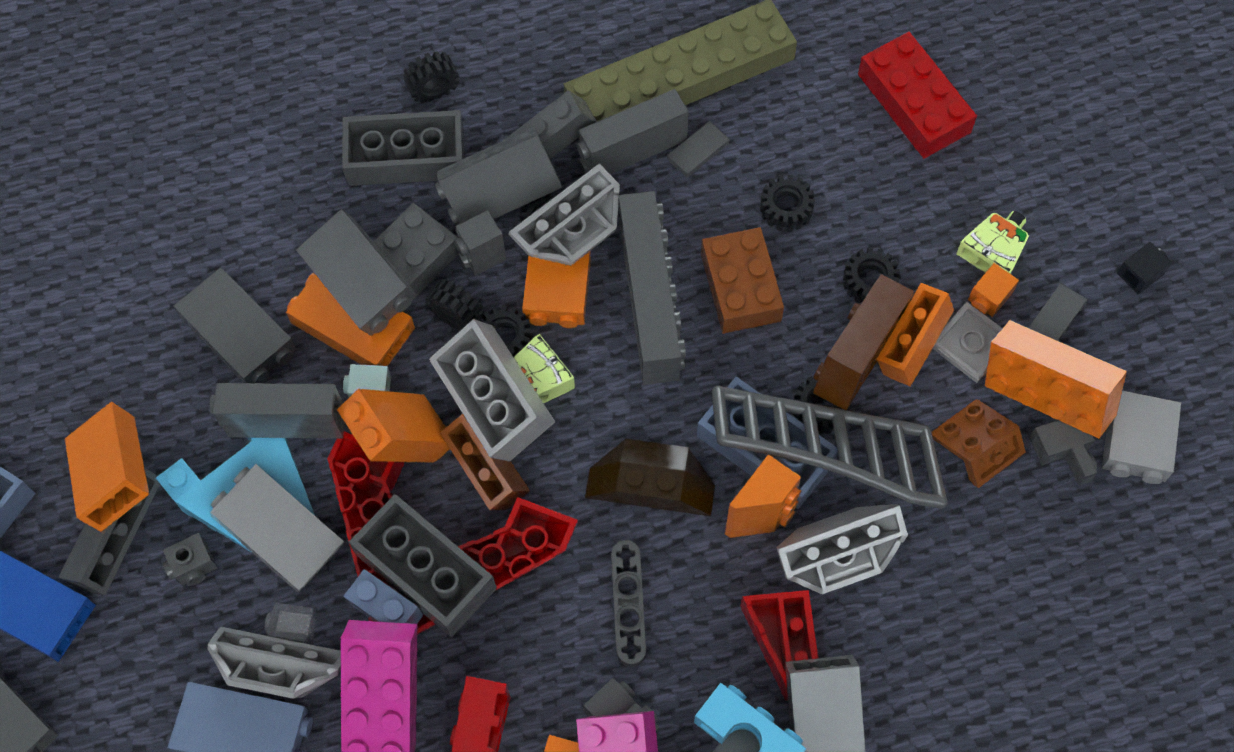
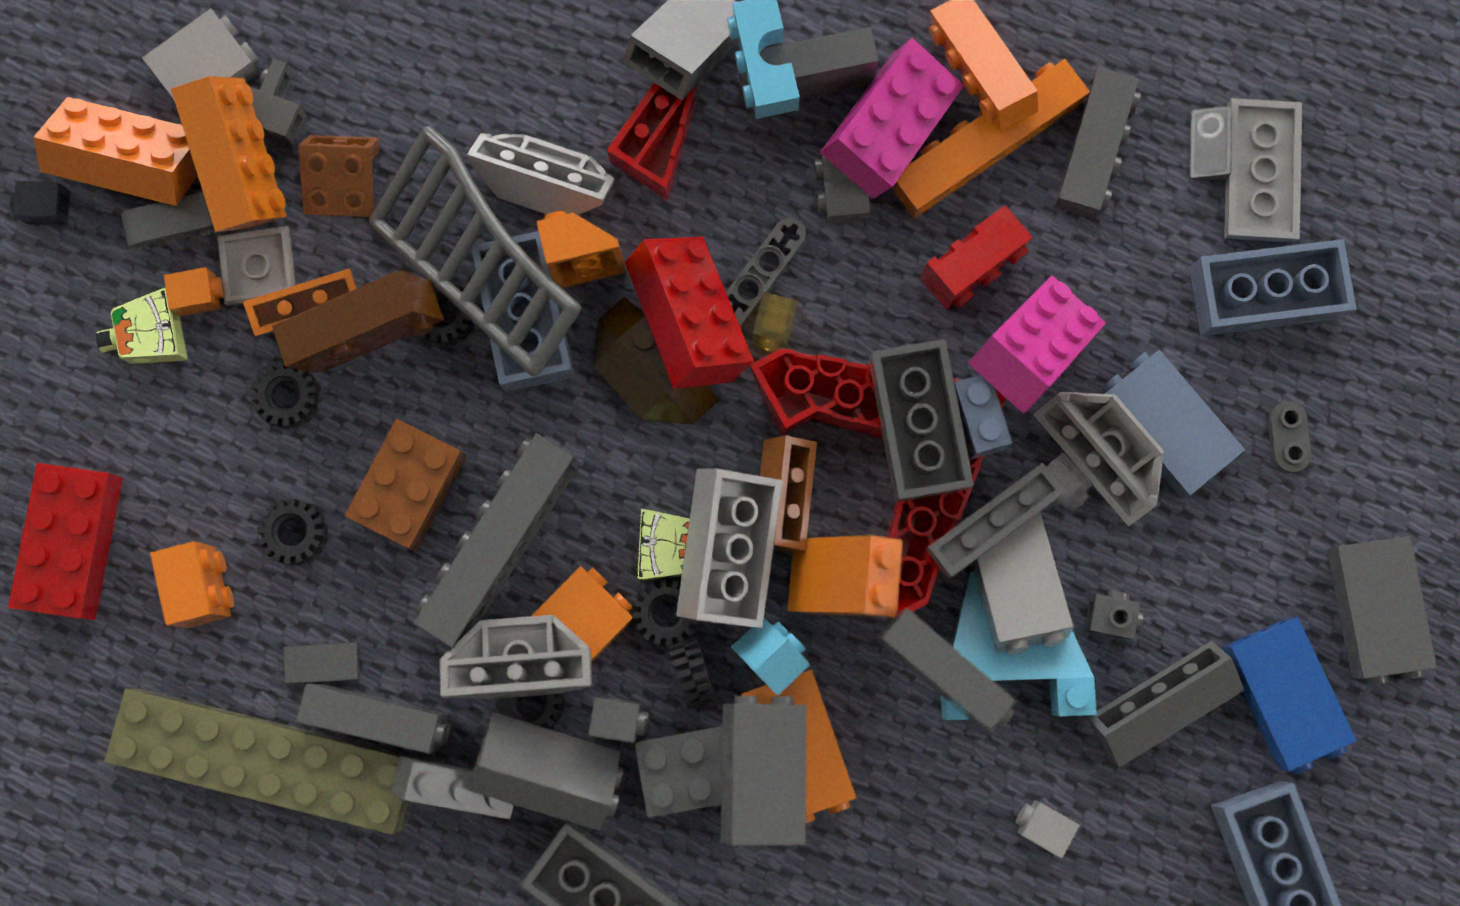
camera: 140 degrees left, 15 degrees up
(106, 467) = (1136, 760): orange brick -> none
(142, 392) = (1046, 827): none -> light grey brick
(235, 328) = (913, 827): dark grey brick -> none
(318, 547) = (995, 521): none -> dark grey plate
(367, 377) = (832, 663): light aqua brick -> none
(408, 351) = (772, 655): none -> medium azure brick
(589, 576) = (774, 321): none -> clear yellow brick
(651, 523) = (688, 311): none -> red brick
(815, 123) = (192, 584): none -> orange brick
(1134, 326) = (116, 151): none -> orange brick

